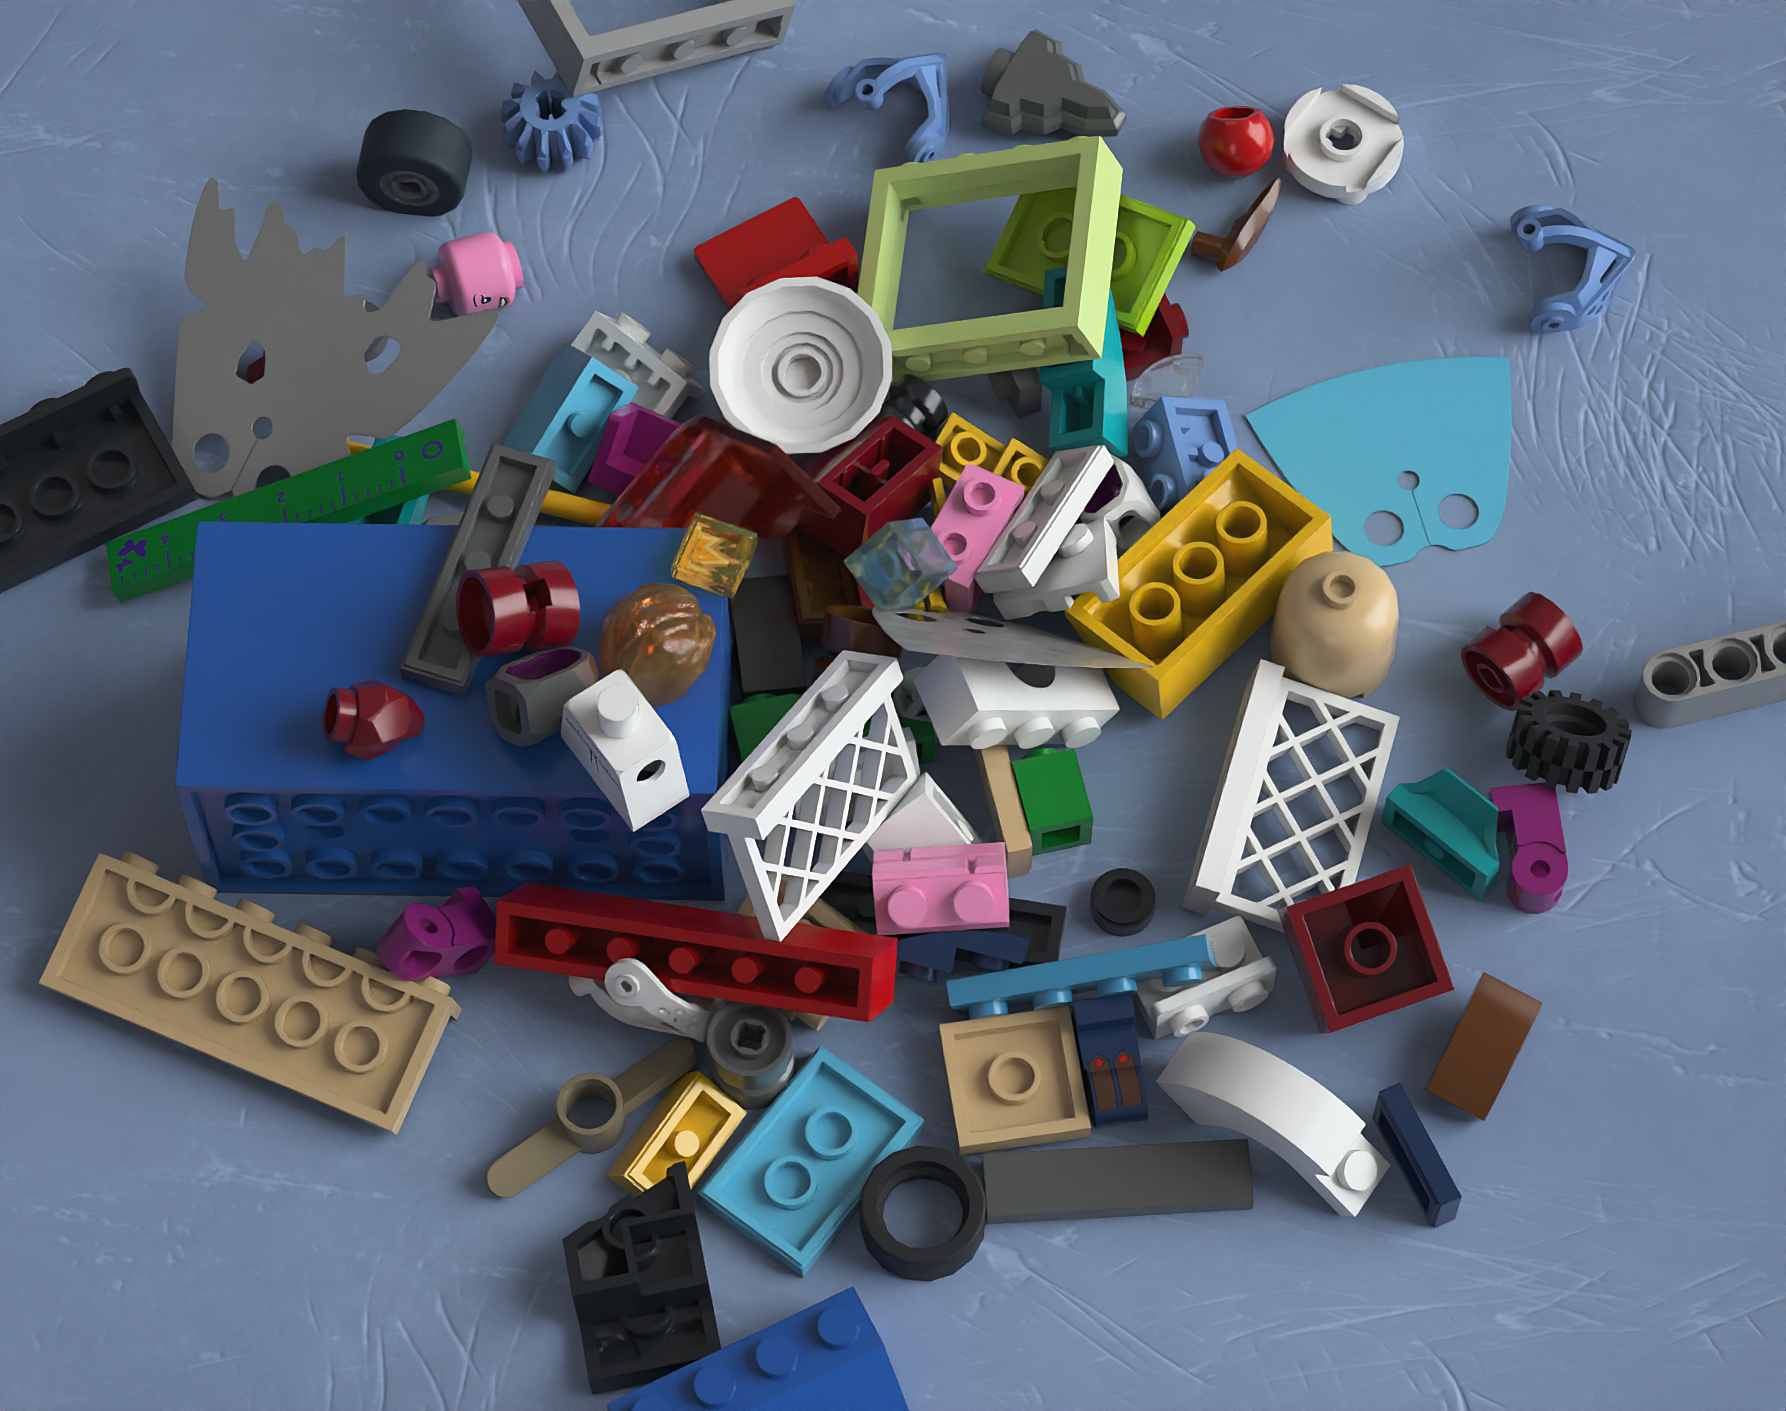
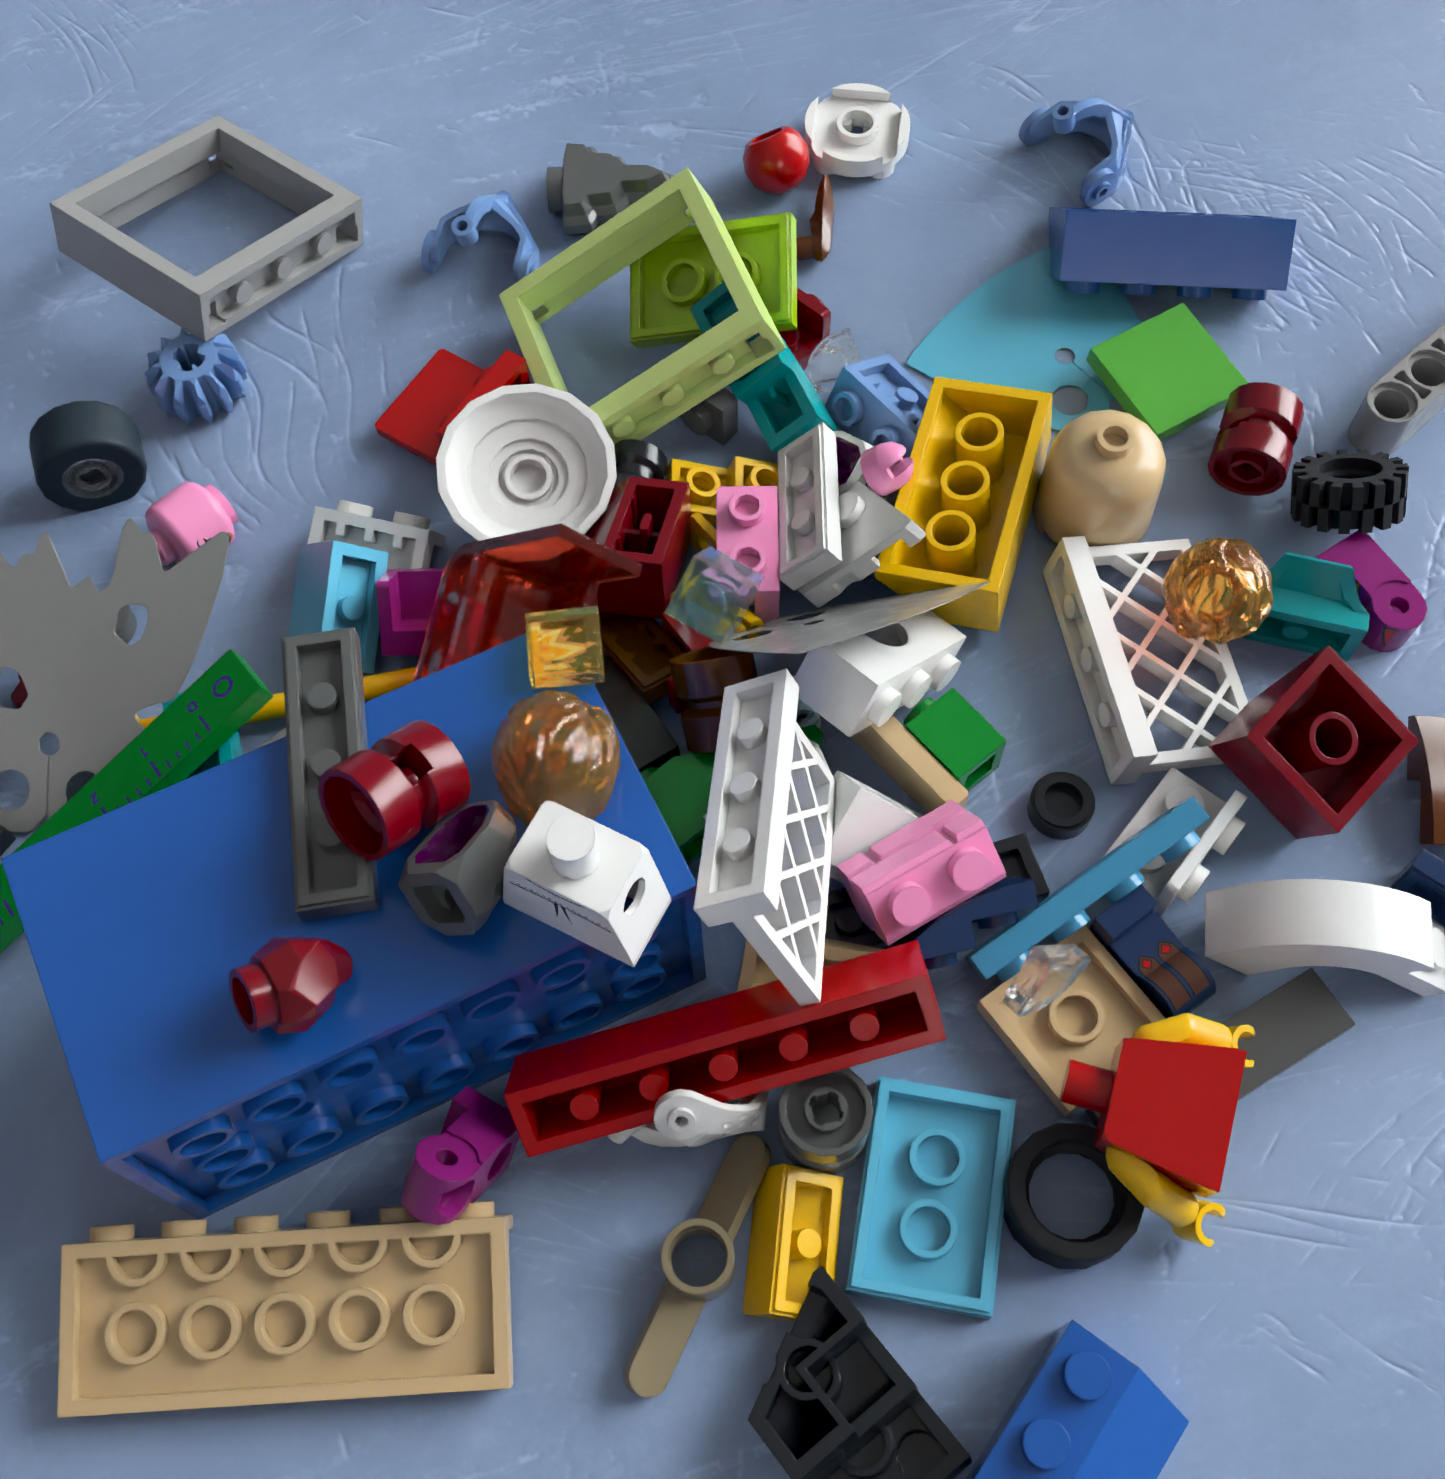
camera: 25 degrees left, 0 degrees up
(1001, 1028) = (1045, 976): none -> clear tile
(1027, 1173) = (1167, 1113): none -> red torso
(1128, 505) = (885, 467): none -> bright pink hinge
(1370, 774) = (1218, 590): none -> clear orange hair
(1484, 544) = (1166, 371): none -> bright green tile
(1570, 416) = (1170, 250): none -> blue slope

